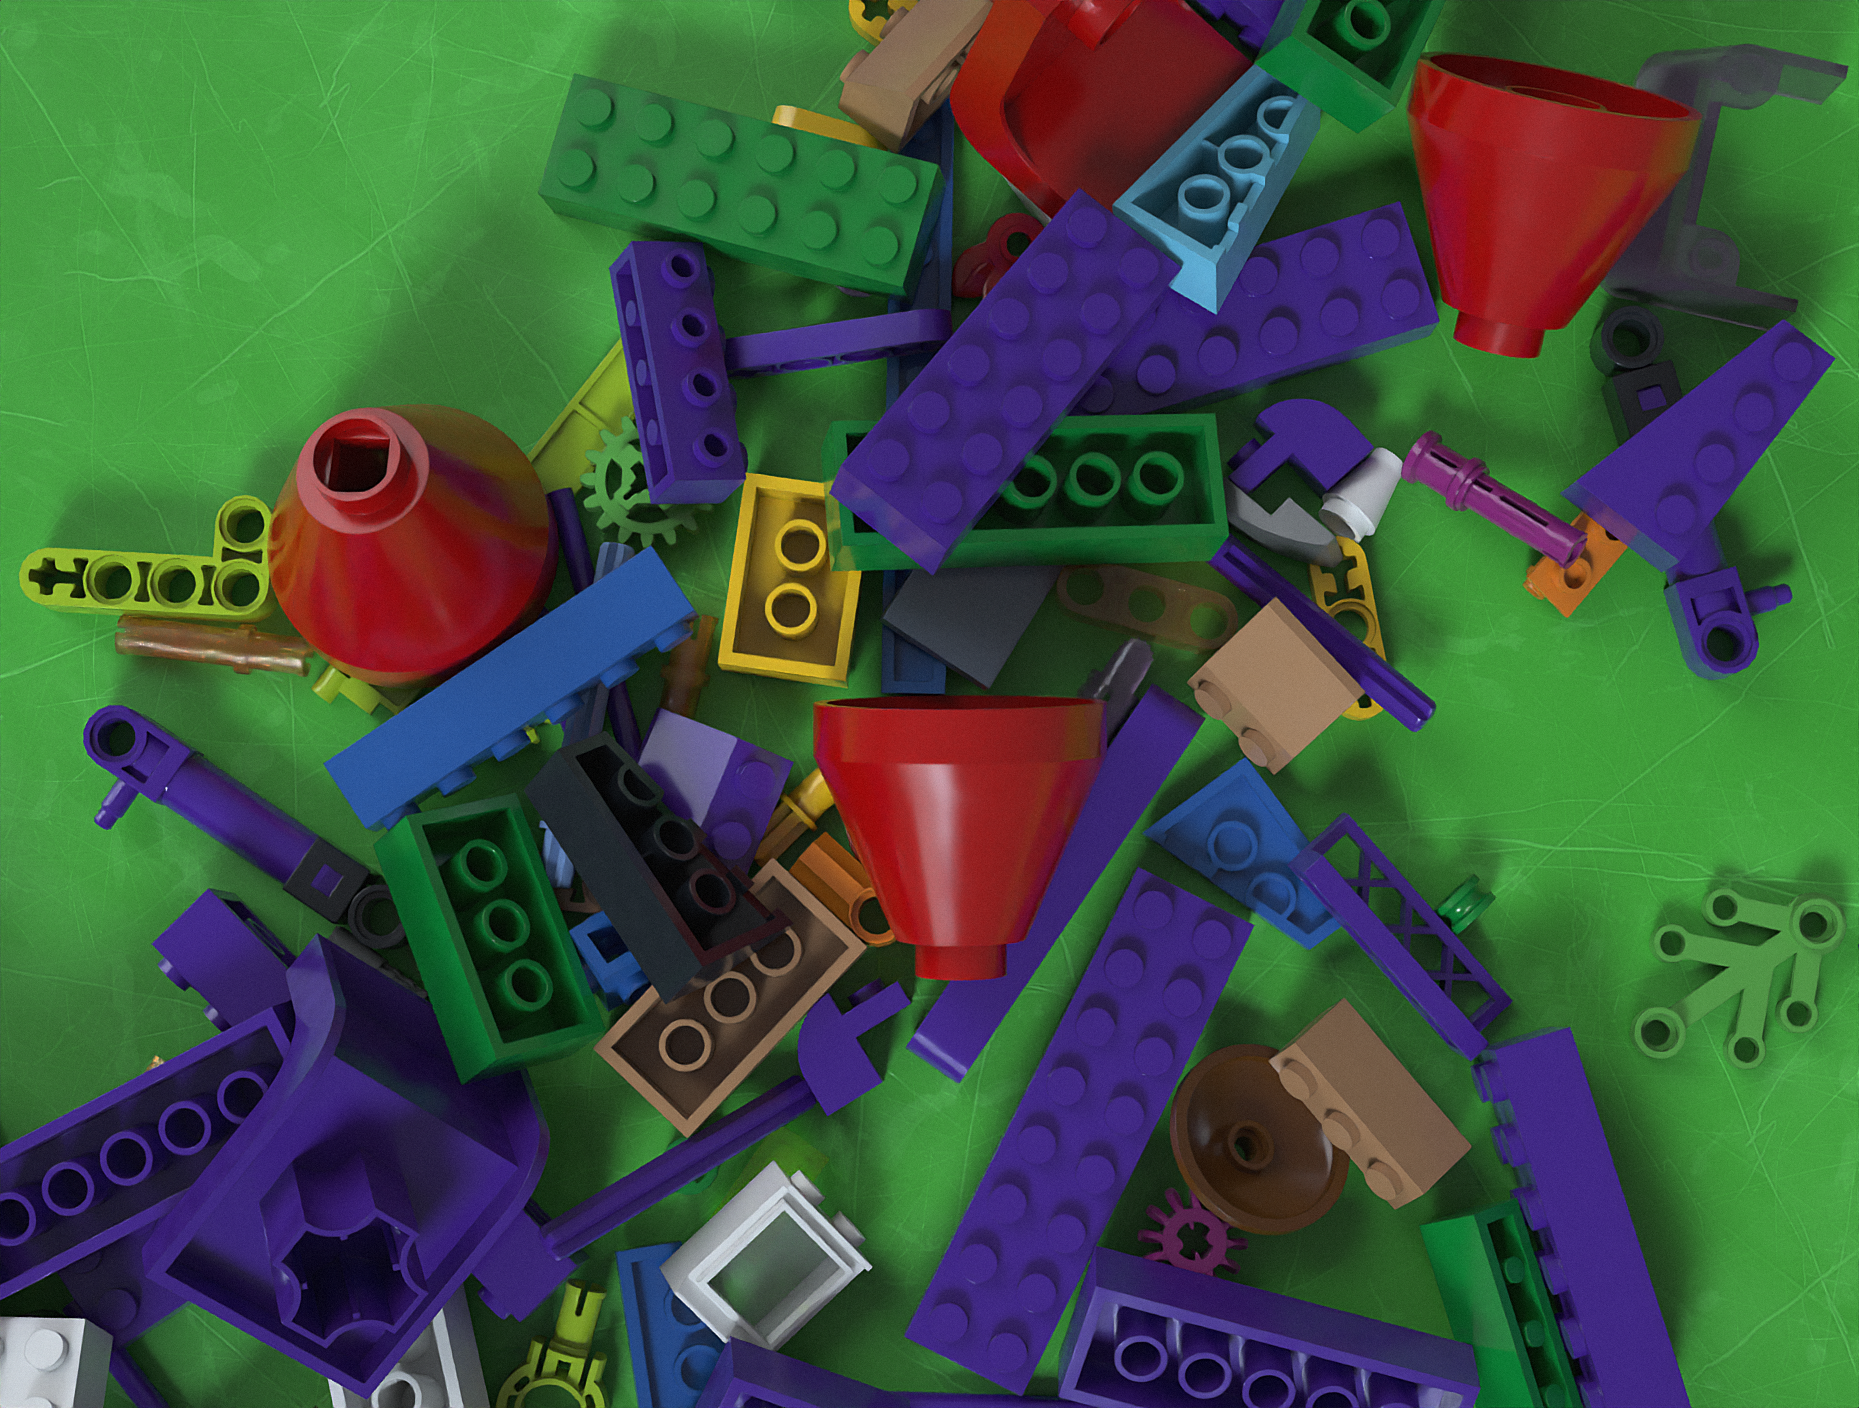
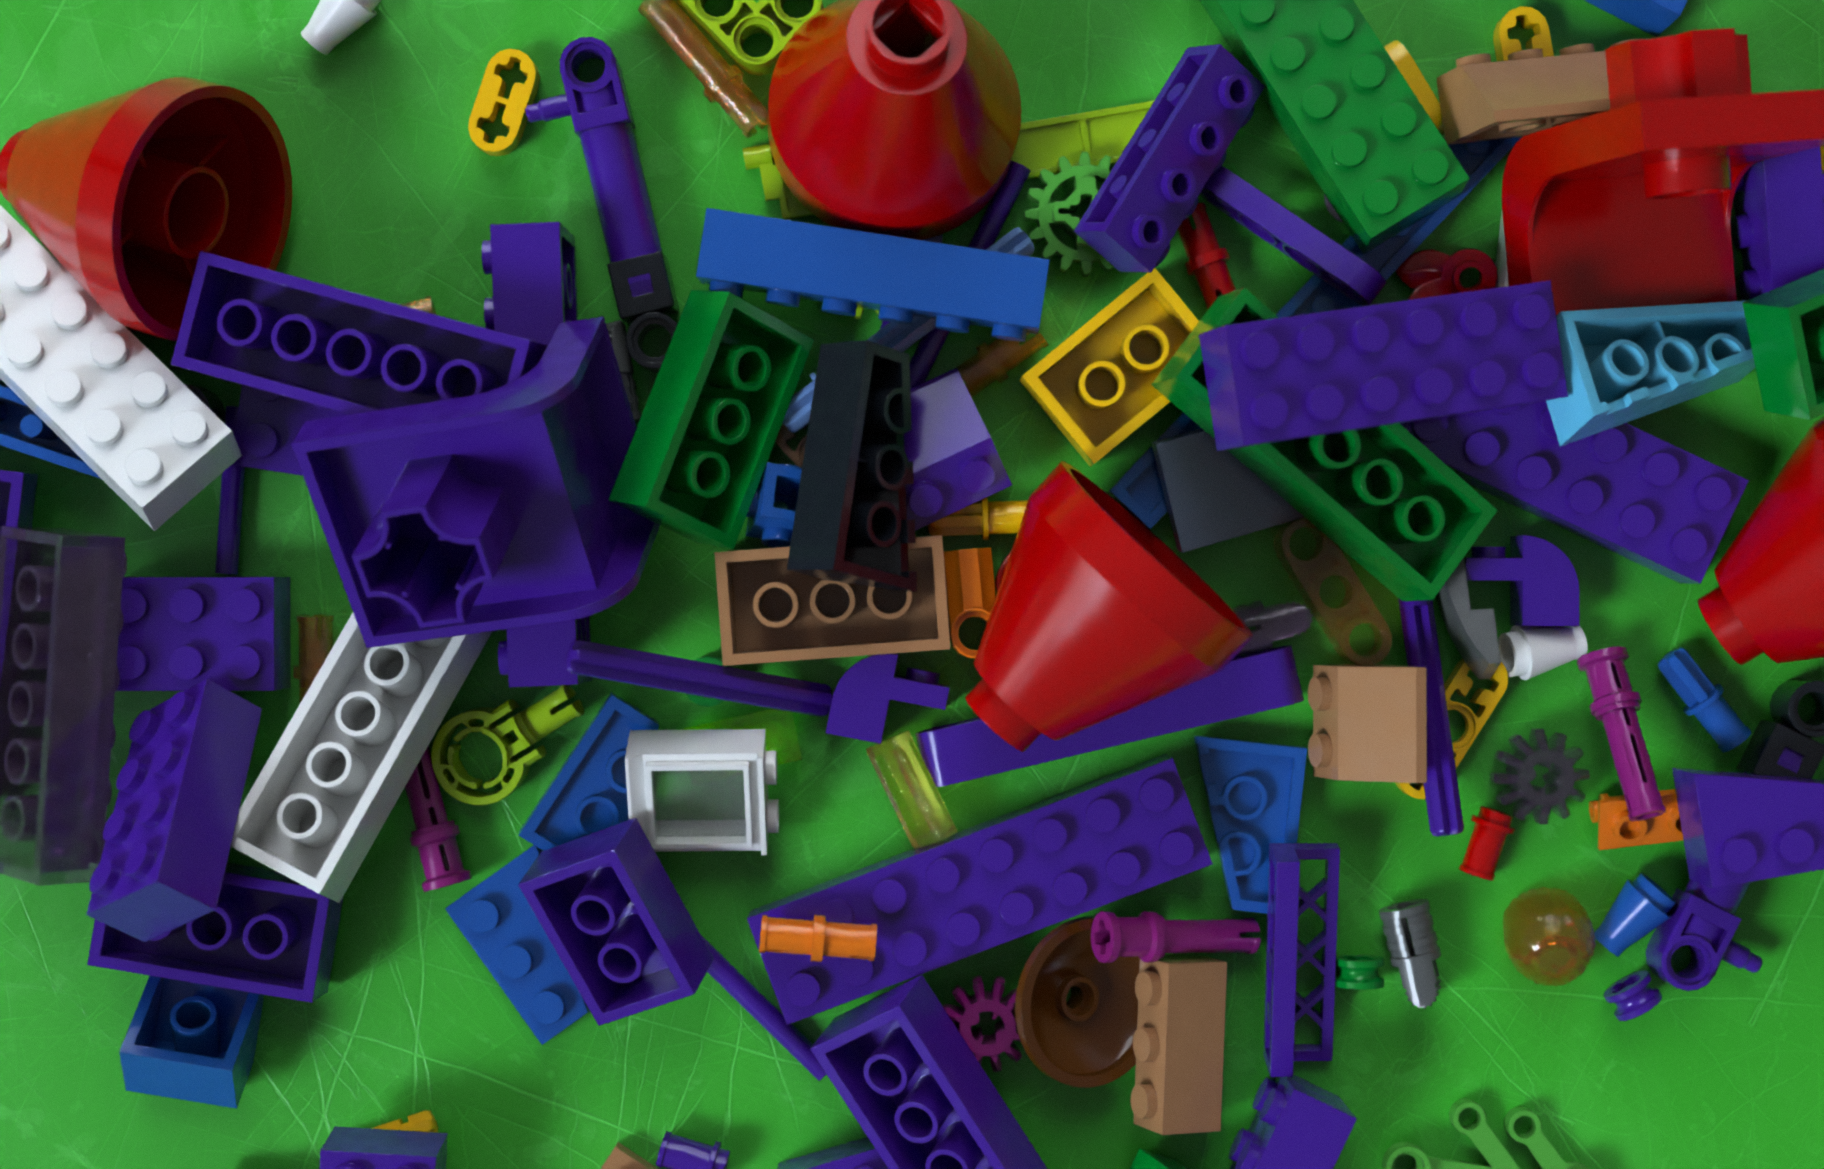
camera: 40 degrees right, 5 degrees up
(58, 840) = (491, 98): none -> yellow beam
(782, 425) = (1205, 256): none -> red pin
(945, 1098) = (911, 790): none -> clear yellow tile
(978, 1295) = (818, 938): none -> orange pin
(1261, 1033) = (1152, 936): none -> magenta pin
(1469, 697) = (1486, 842): none -> red pin
(1479, 591) = (1558, 779): none -> gear
(1492, 843) = (1415, 961): none -> dark grey hinge
(1536, 413) = (1703, 699): none -> blue axle
(1593, 728) = (1548, 936): none -> clear orange hair
(1647, 644) = (1635, 913): none -> blue cone
(1709, 713) = (1632, 995): none -> dark purple bush

